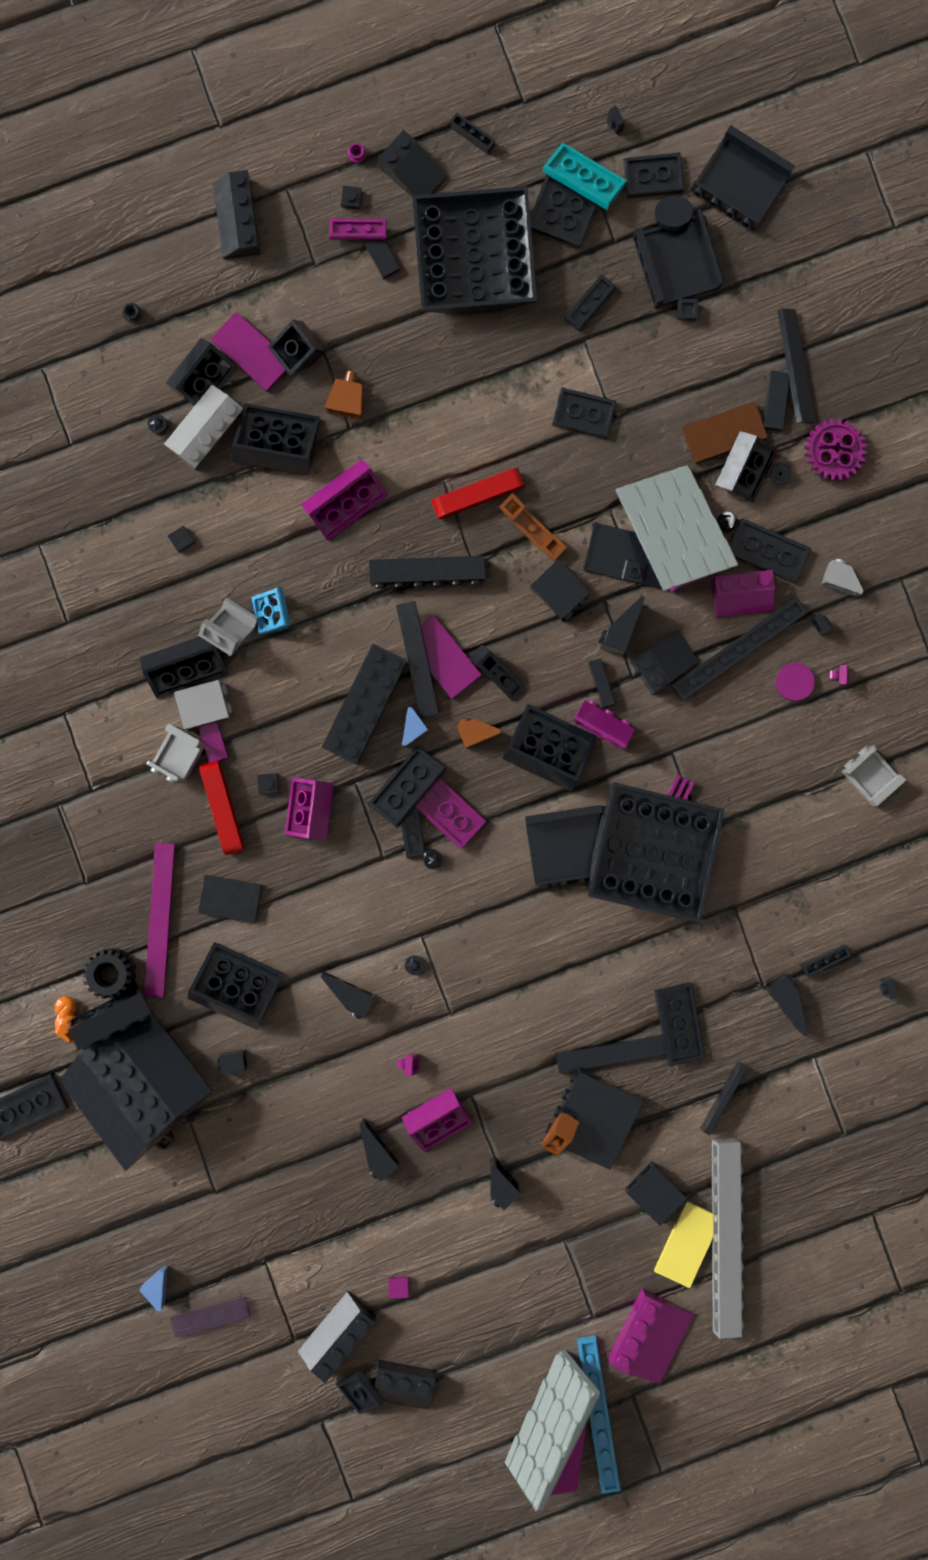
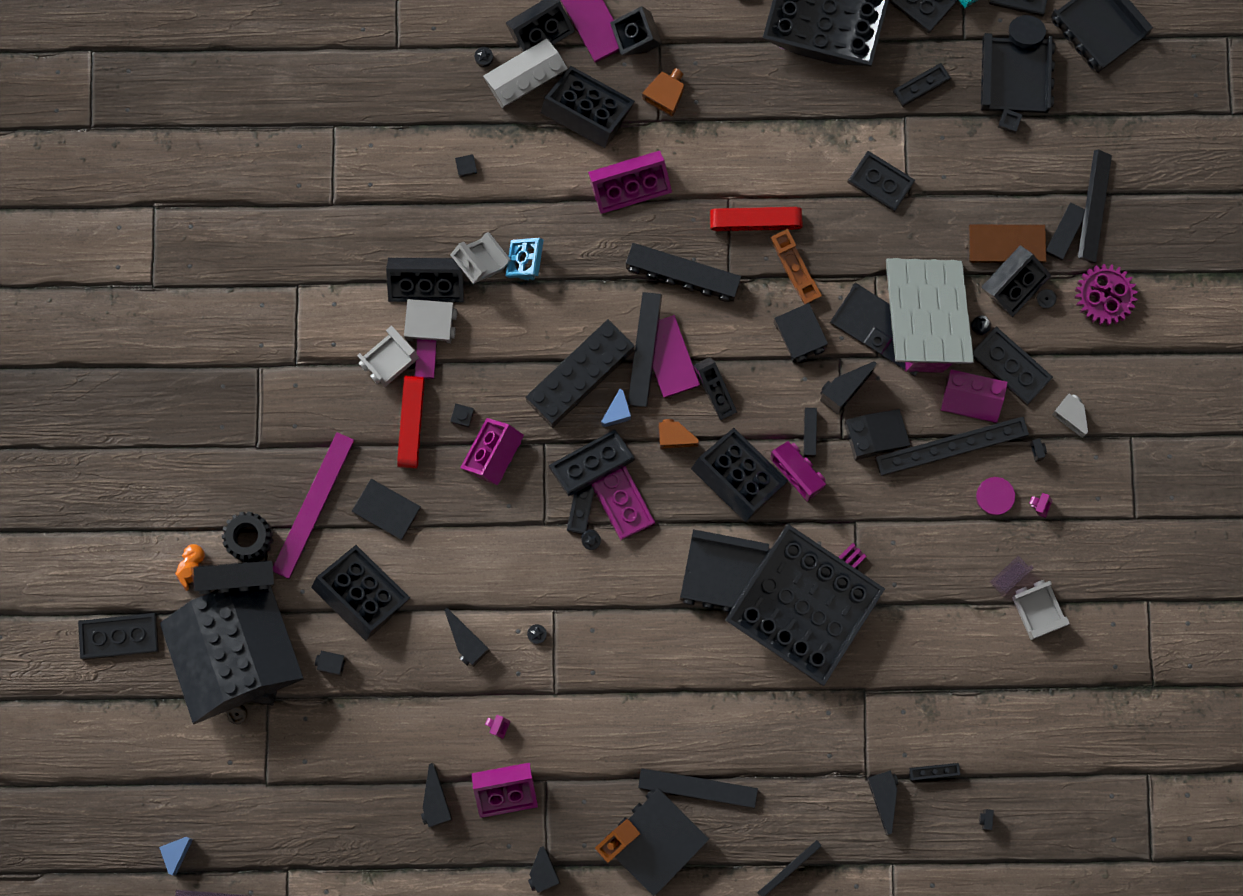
camera: 25 degrees right, 10 degrees down
(679, 1024) = (771, 781): black tile -> none
(835, 753) = (1010, 575): none -> clear purple panel

